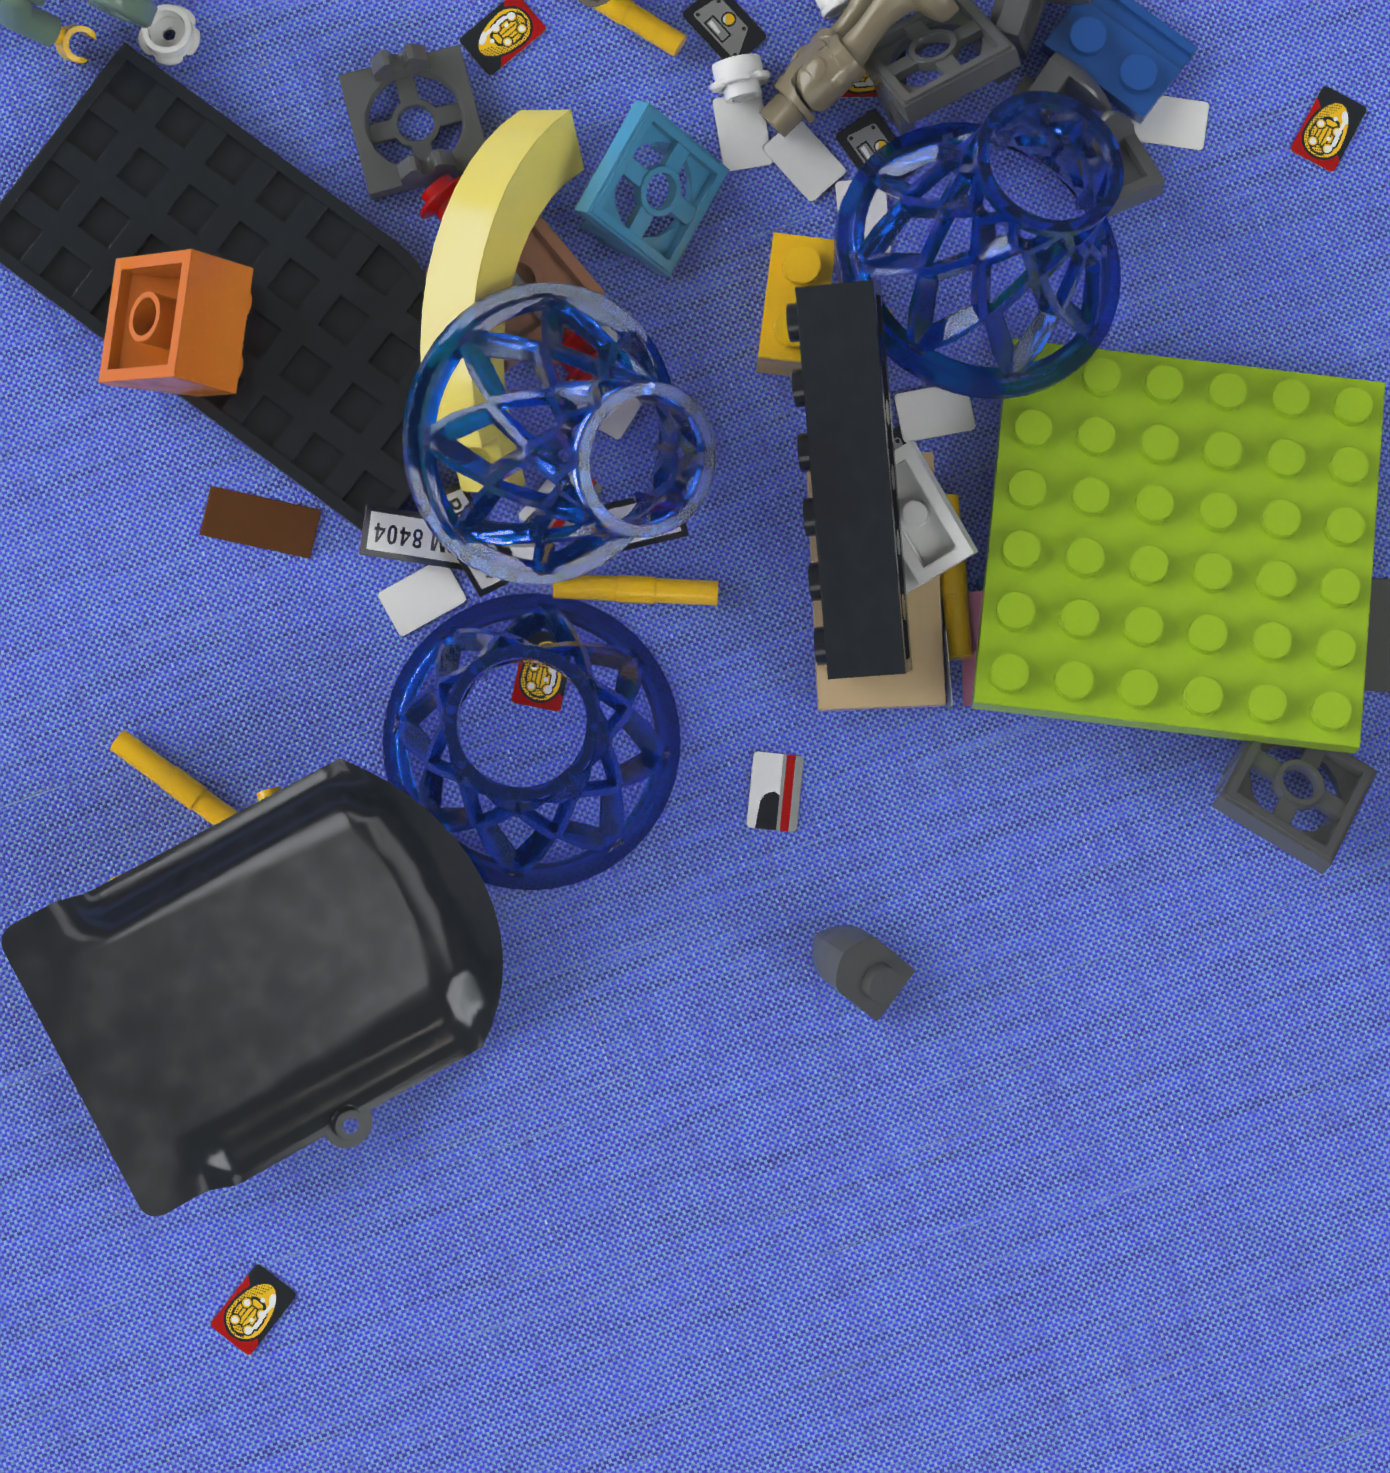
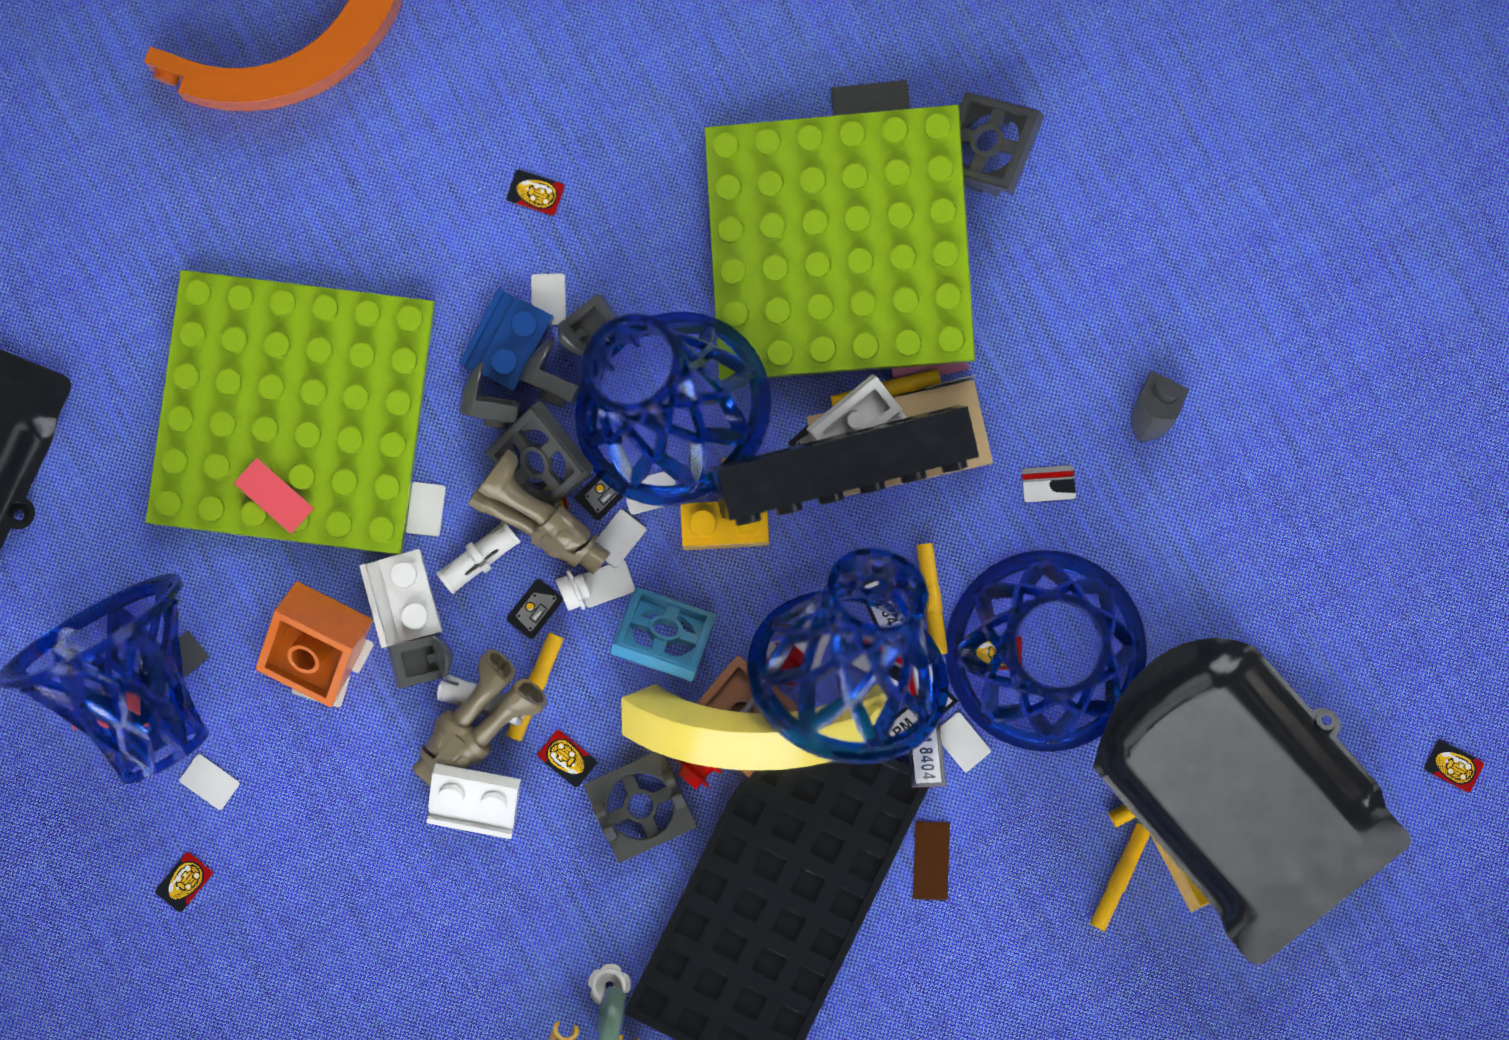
camera: 95 degrees left, 0 degrees up
(176, 323) = (816, 937): orange slope -> none
(933, 413) = (781, 426): white sticker -> none

